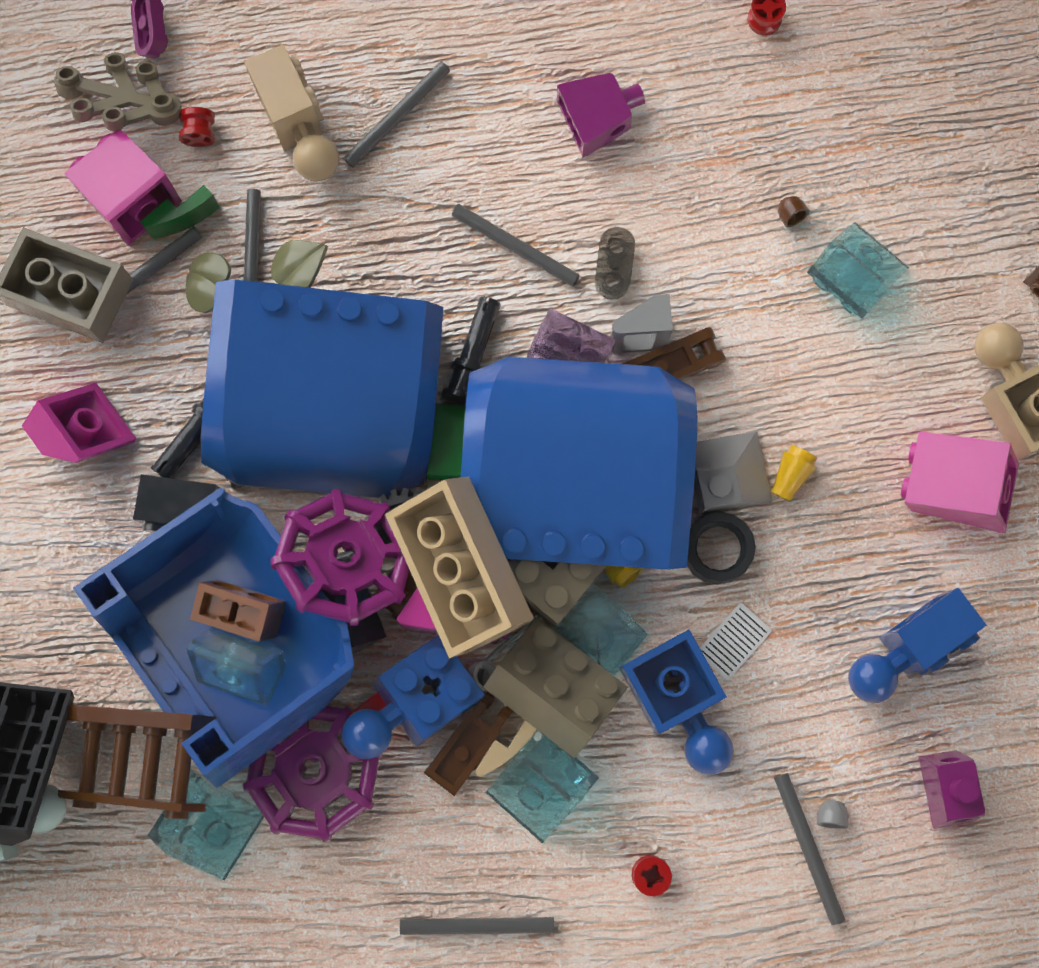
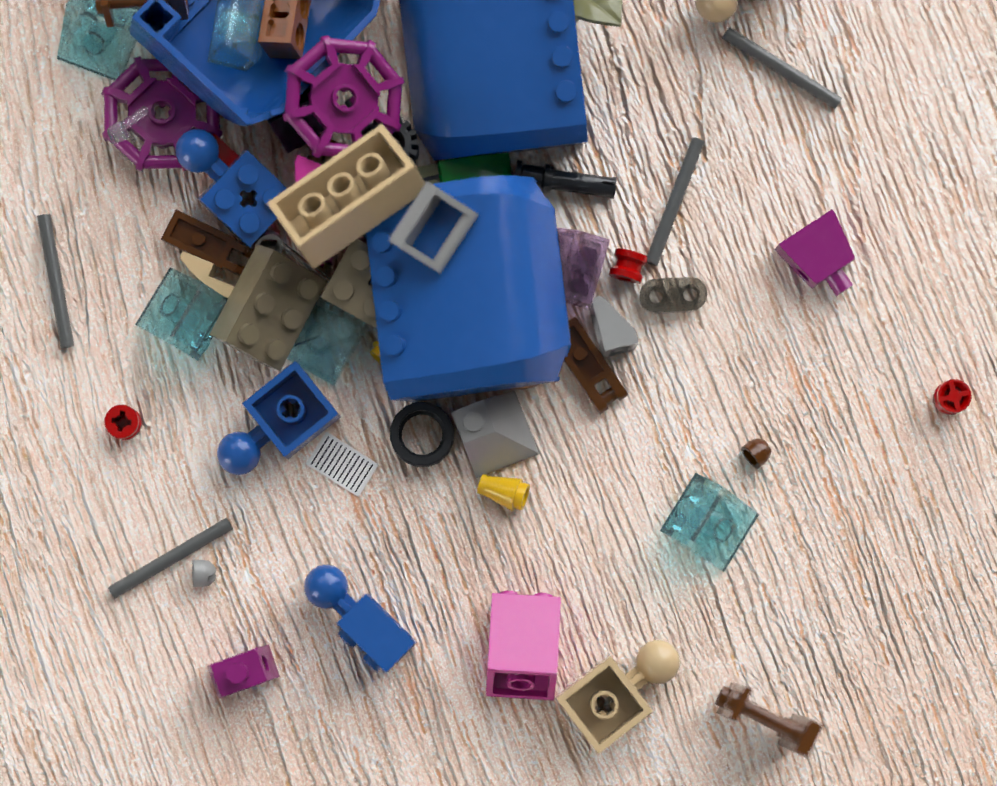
camera: 75 degrees right, 5 degrees up
(327, 820) = (118, 132): none -> clear hand
(499, 491) = (417, 217): none -> light grey tile
(576, 301) = (628, 266): none -> red wheel

